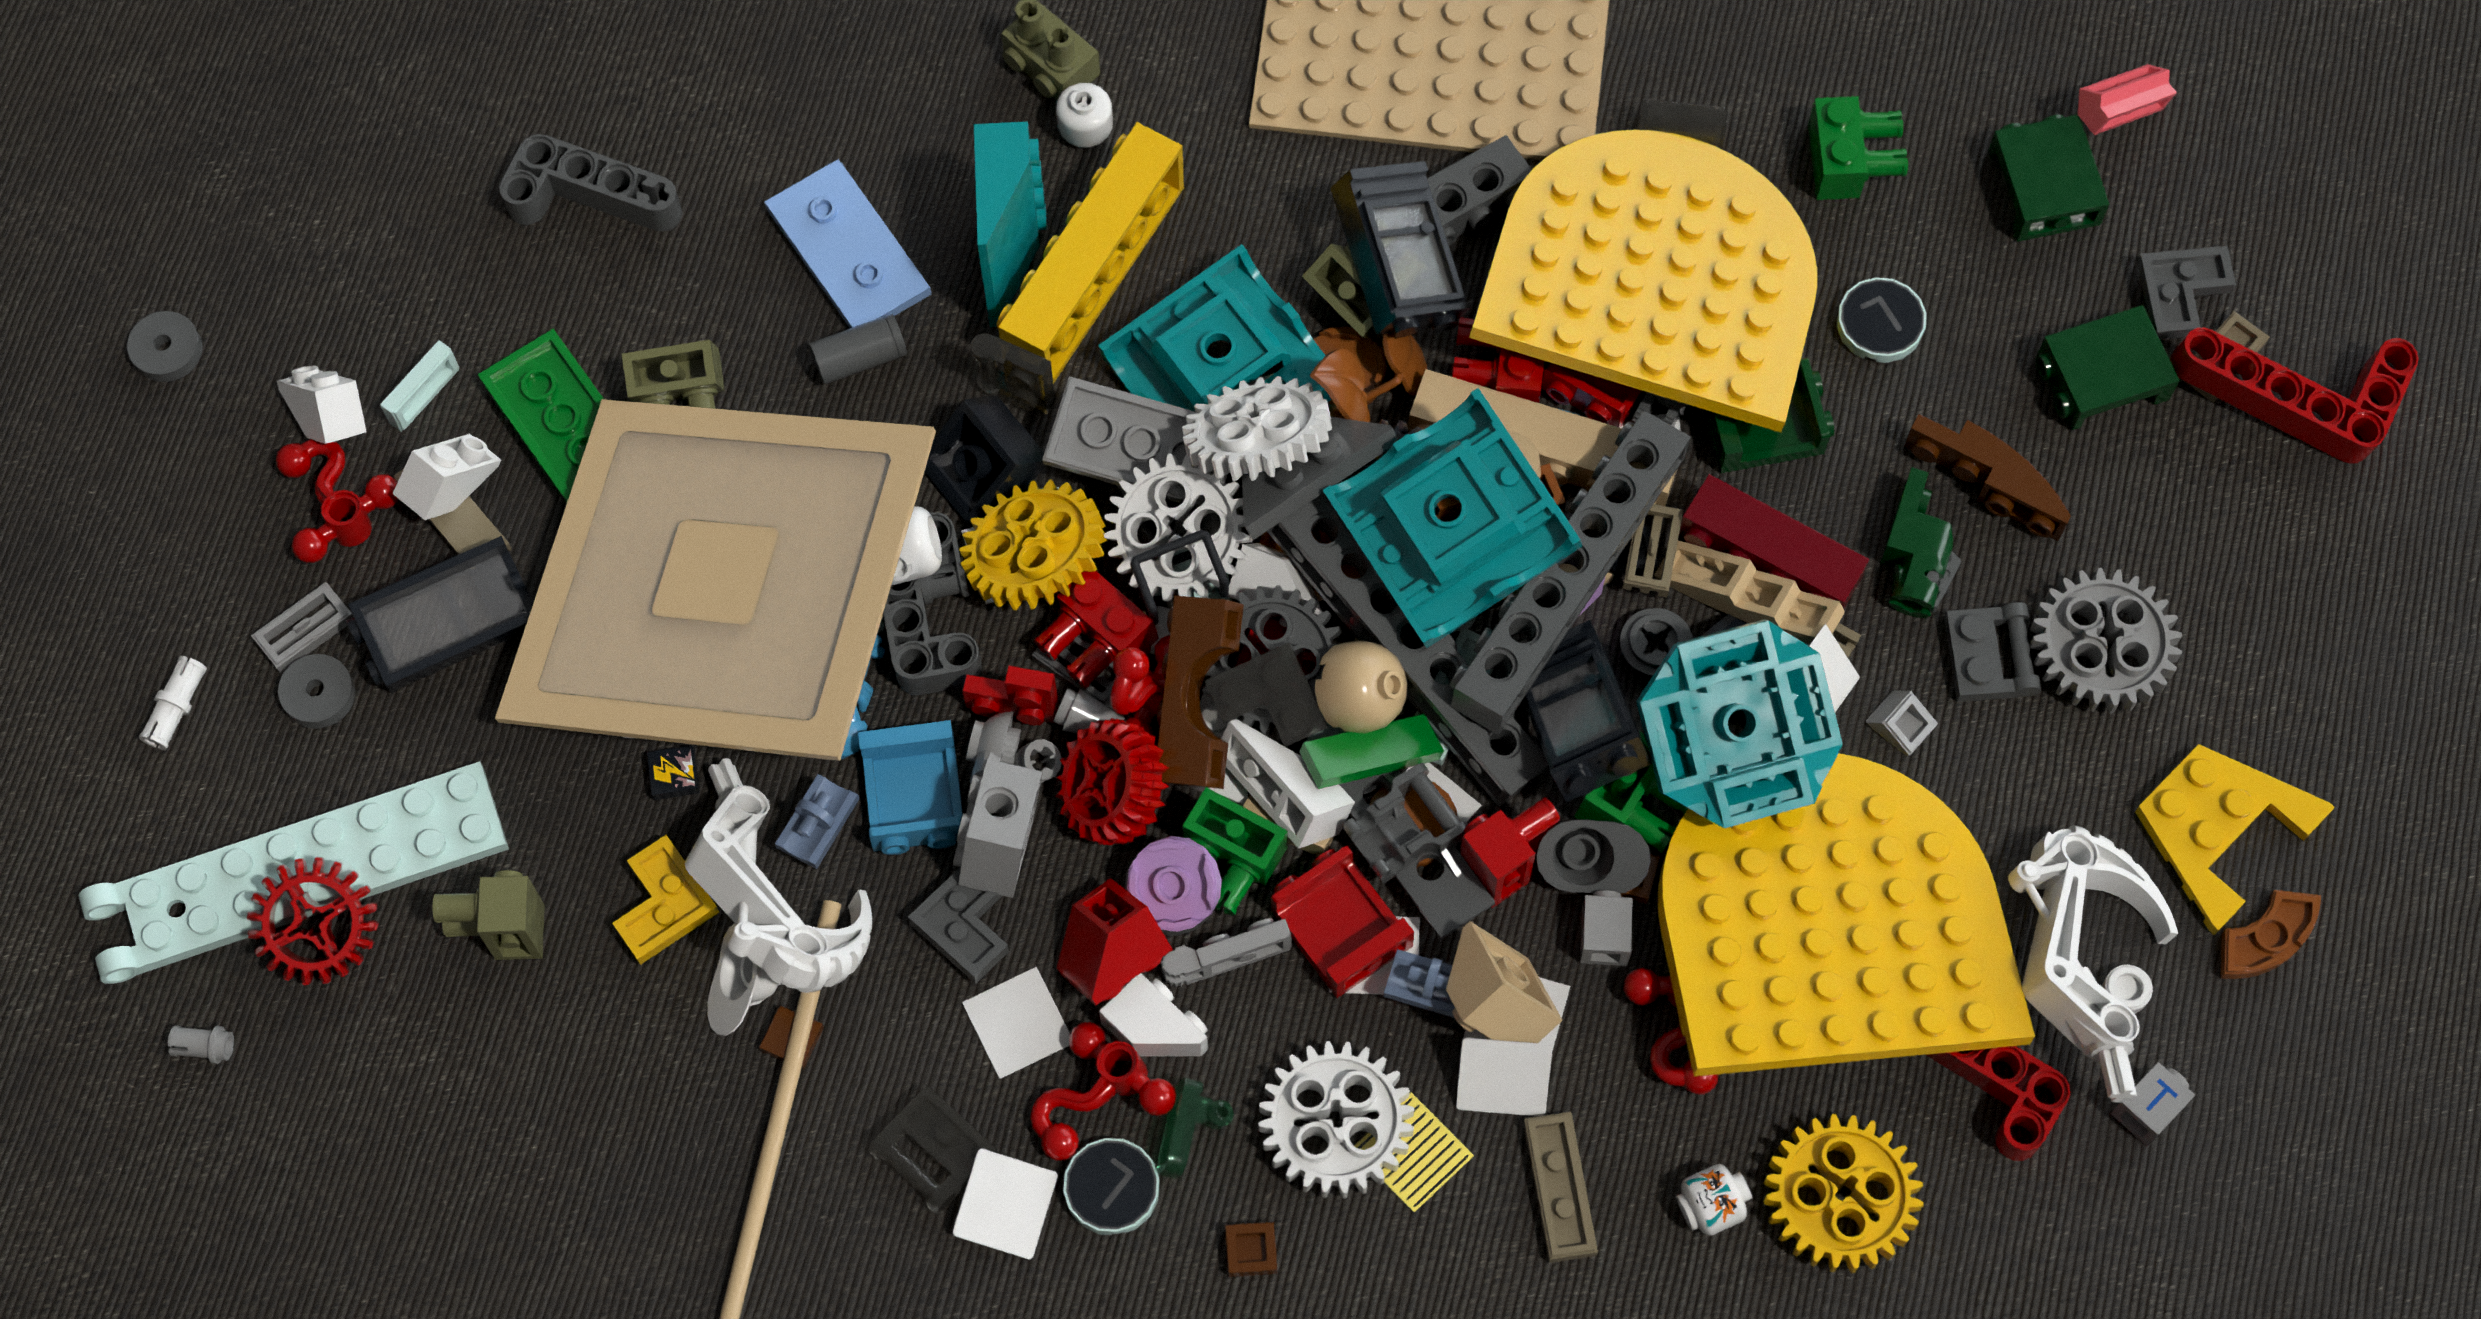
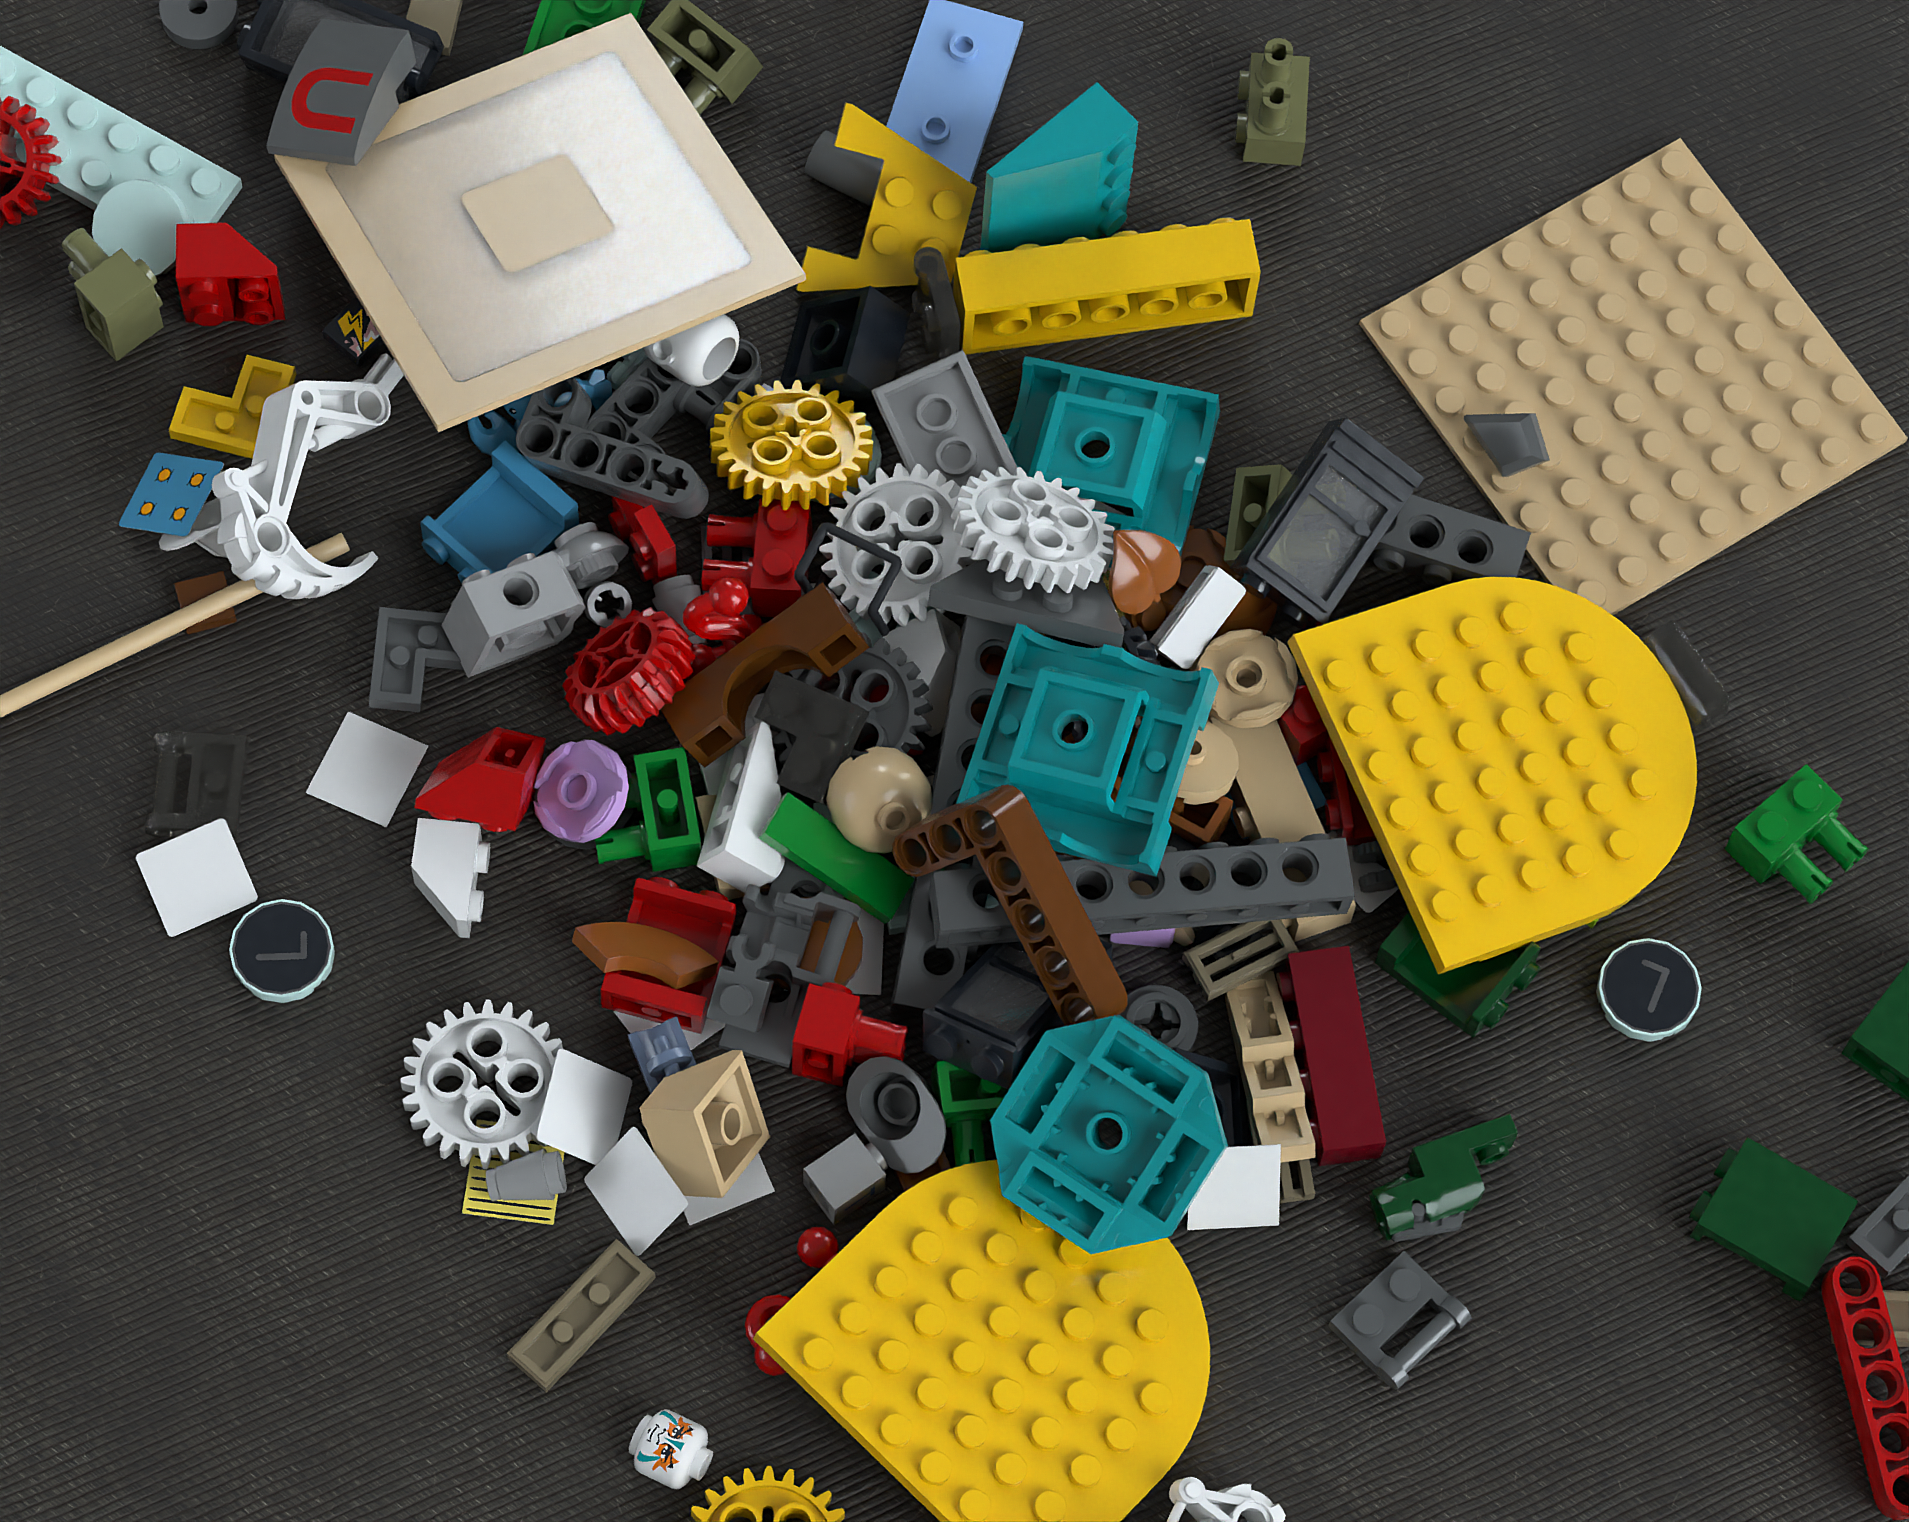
camera: 45 degrees right, 0 degrees up
(458, 852) = (141, 221): none -> light aqua tile
(491, 635) = (341, 92): none -> dark grey slope
(556, 826) = (225, 277): none -> red slope
(689, 996) = (170, 494): none -> dark azure sticker
(817, 821) = (403, 472): sand blue hips -> none
(925, 333) = (912, 208): none -> yellow wing
(947, 664) = (614, 459): none -> dark grey beam
(1084, 115) = (1239, 180): white head -> none
(1088, 1042) = (391, 835): red piece -> none
(1180, 1125) = (396, 955): clear green piece -> none
(1226, 953) = (560, 882): light grey hinge -> none
(1251, 1249) = (318, 1104): reddish brown tile -> none
(1330, 932) = (645, 951): none -> dark orange tile
(1391, 380) = (1197, 616): none -> white slope
(1411, 1066) = (583, 1107): none -> white sticker
(1422, 888) = (741, 993): none -> dark grey plate
(1426, 96) = (1510, 440): none -> dark grey piece
(1431, 1144) = (528, 1178): none -> light grey cone
(1465, 366) = (1256, 657): none -> tan plate
(1523, 625) = (1032, 890): none -> reddish brown beam
(1902, 721) = (1265, 1292): light grey slope -> none
(2008, 480) = (1577, 1209): reddish brown slope -> none
(2146, 640) = (1527, 1443): light grey gear -> none

